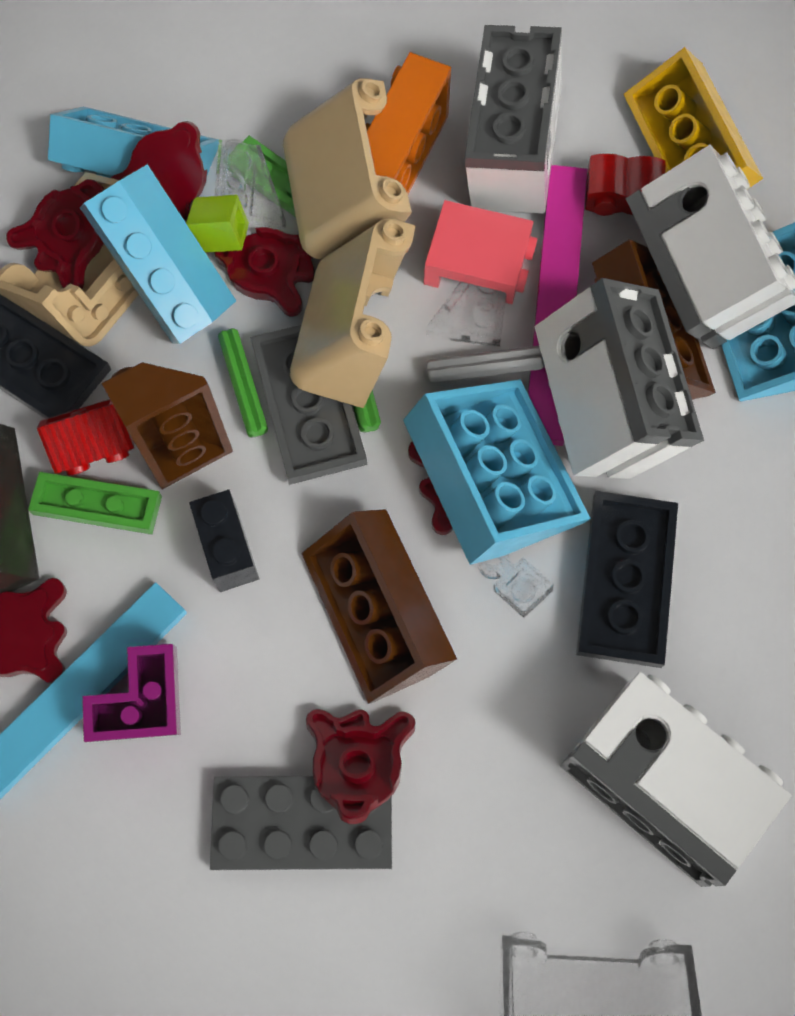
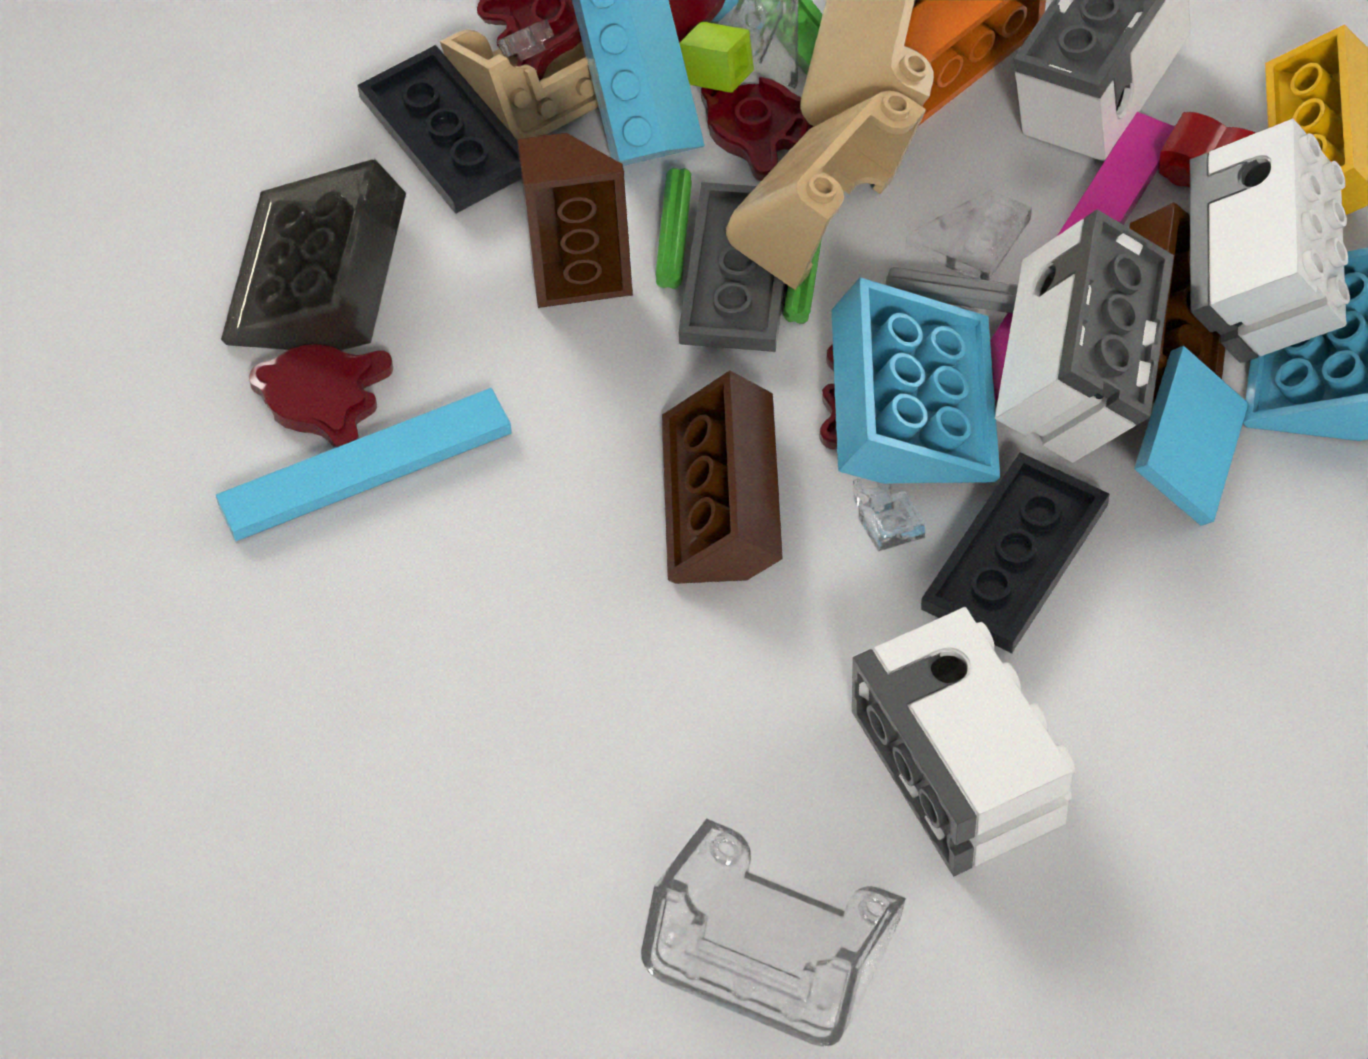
camera: 25 degrees right, 15 degrees down
(60, 261) = (526, 41): none -> clear plate
(85, 437) = (478, 222): red brick -> none
(95, 503) = (461, 293): bright green plate -> none
(149, 706) = (427, 491): magenta brick -> none
(224, 541) = (582, 369): black brick -> none
(291, 827) = (545, 664): dark grey plate -> none
(357, 762) = (632, 618): dark red tile -> none
(480, 249) = (1006, 172): coral panel -> none
(725, 453) = (1191, 436): none -> medium azure tile

